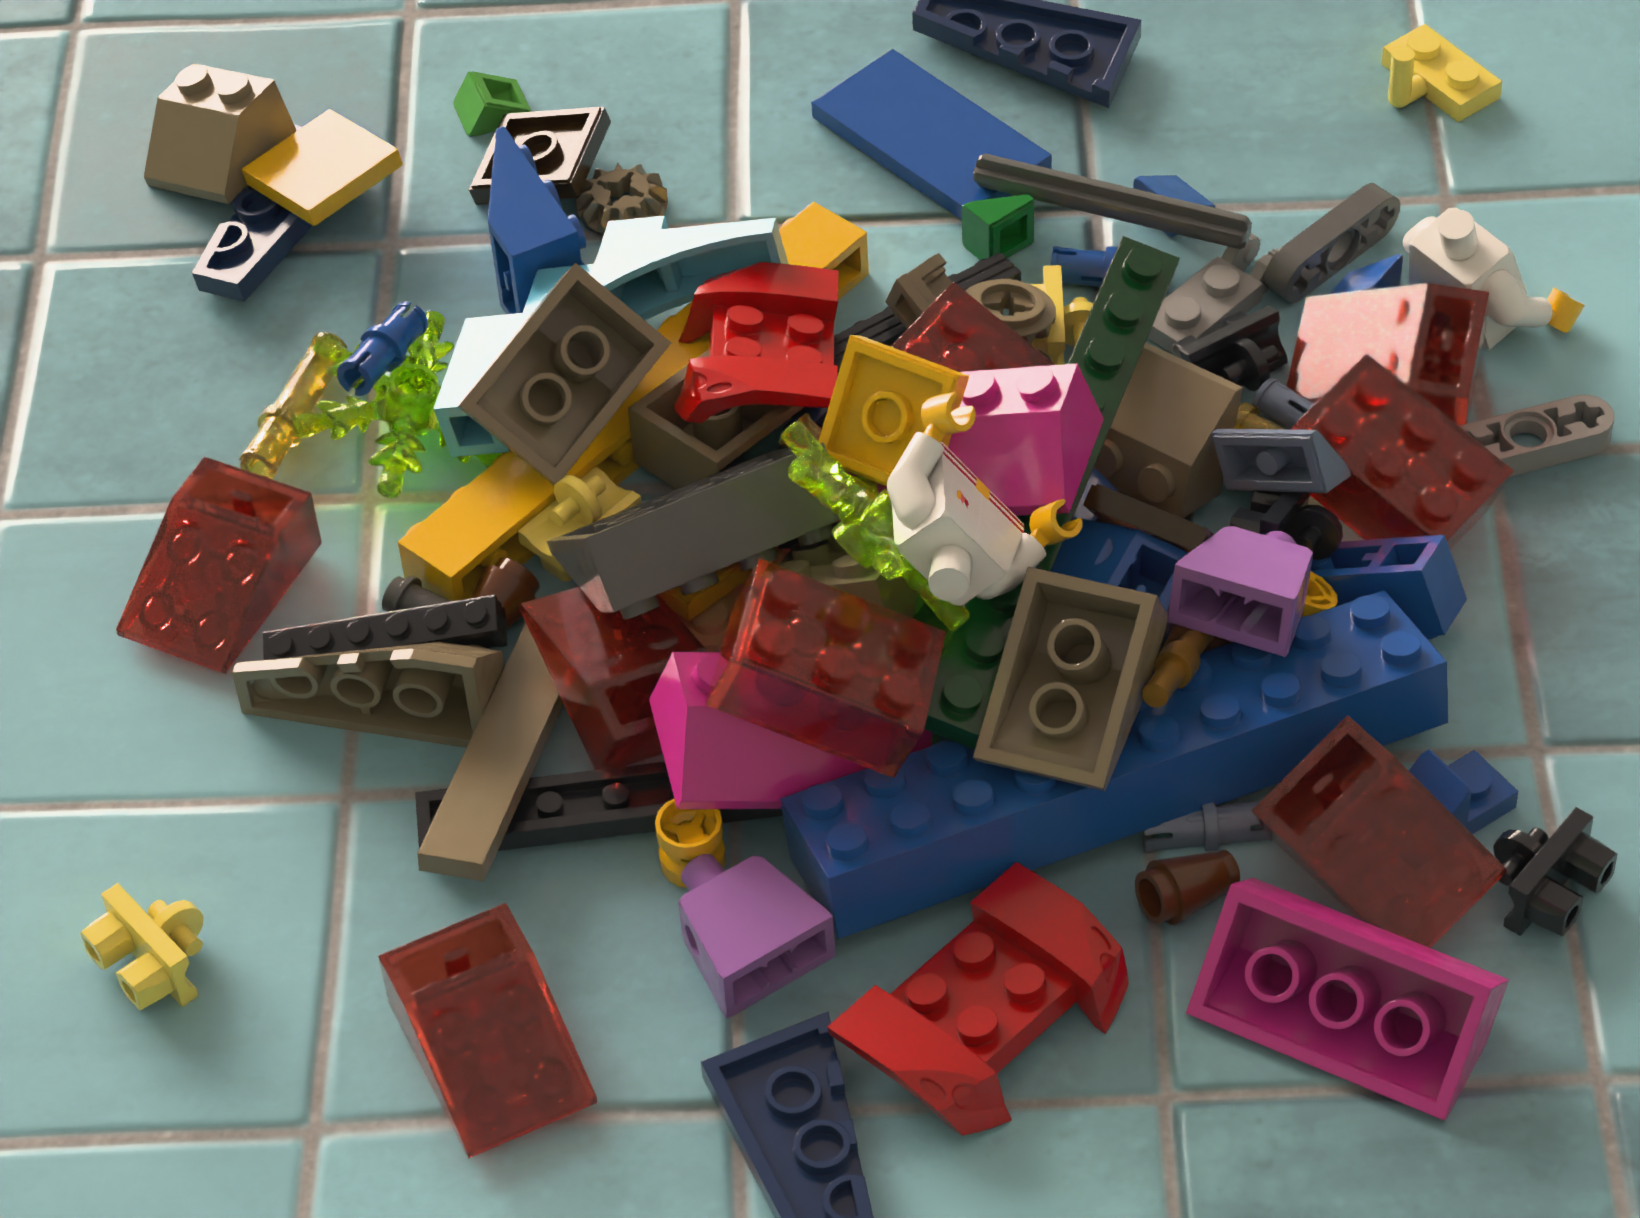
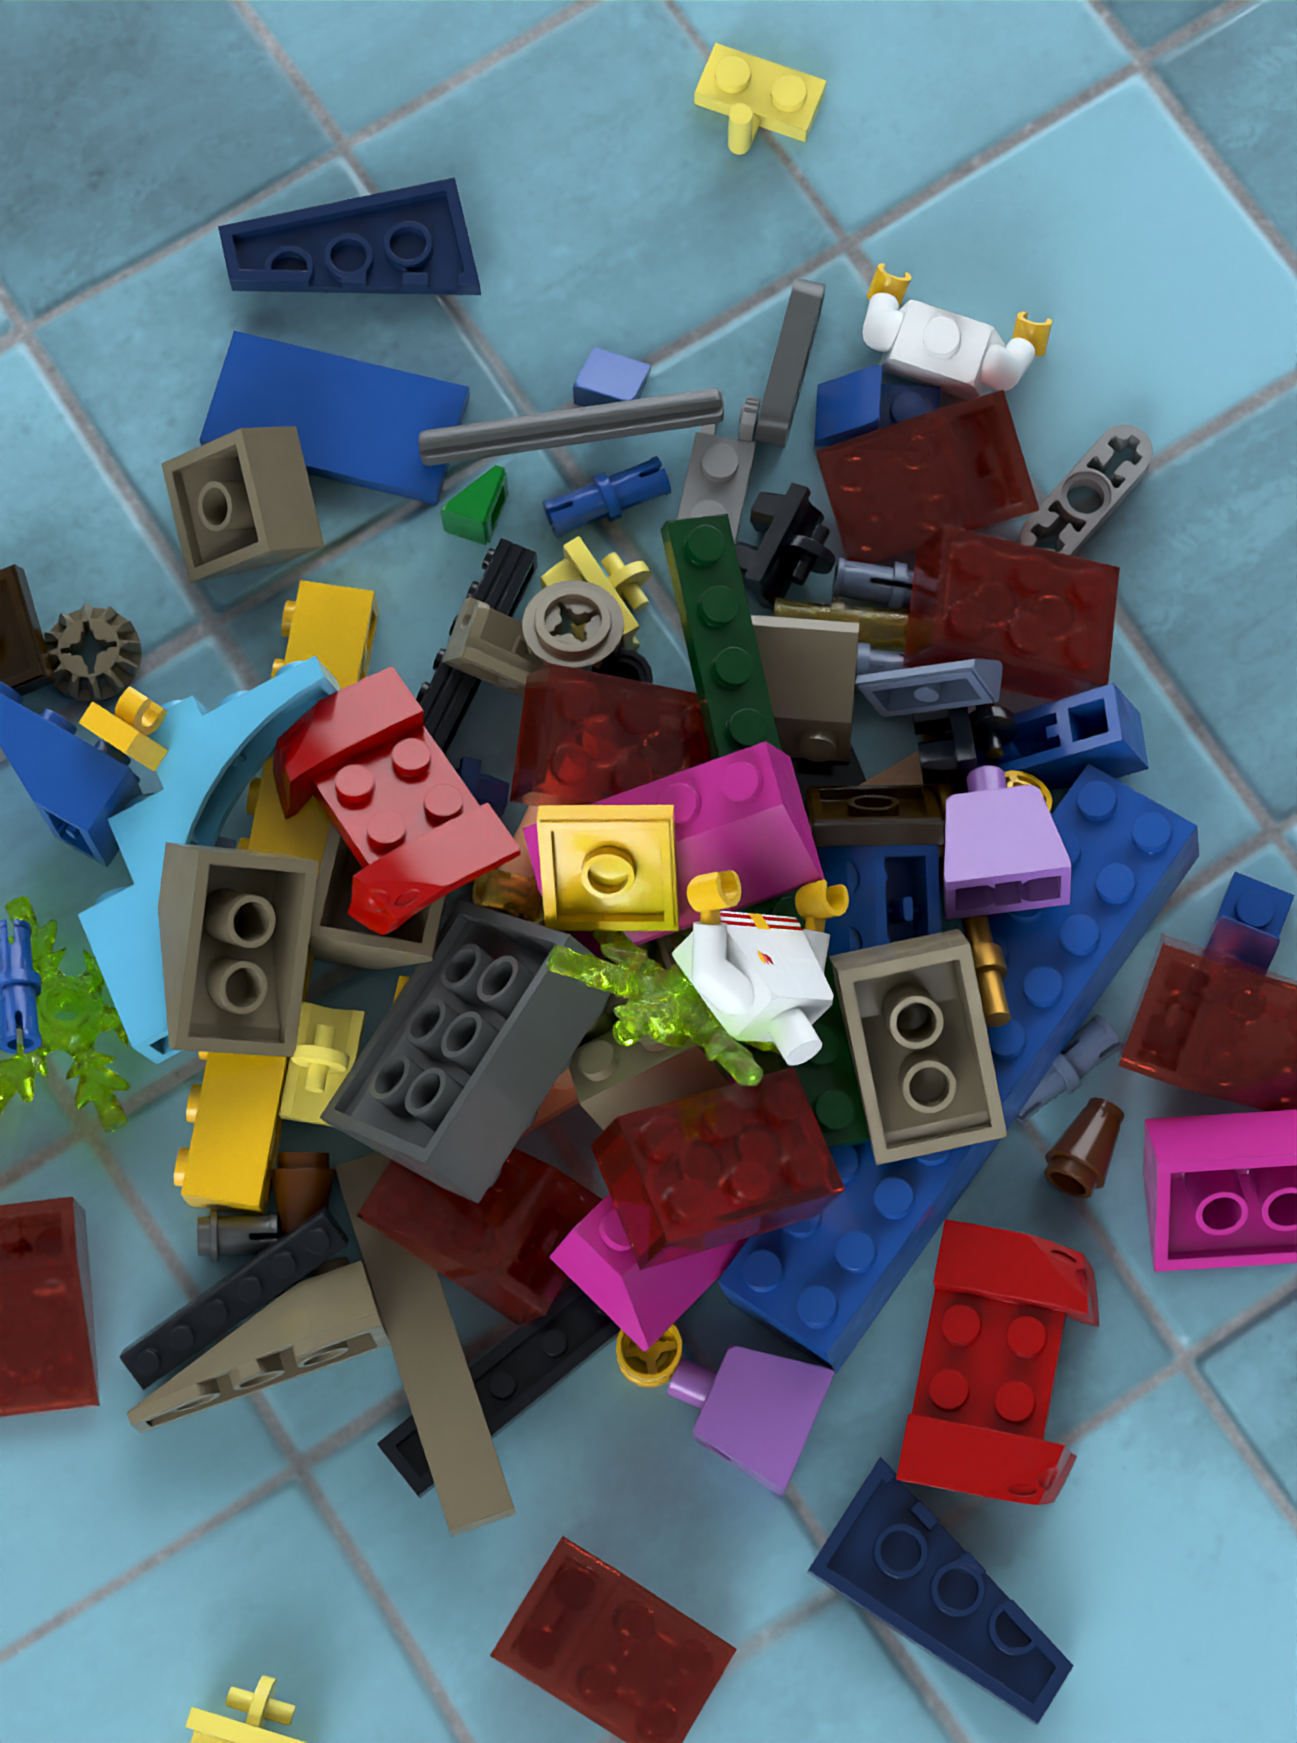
camera: 35 degrees left, 25 degrees up
(591, 205) = (129, 727): none -> yellow tile
(812, 143) = (242, 503): none -> dark tan slope

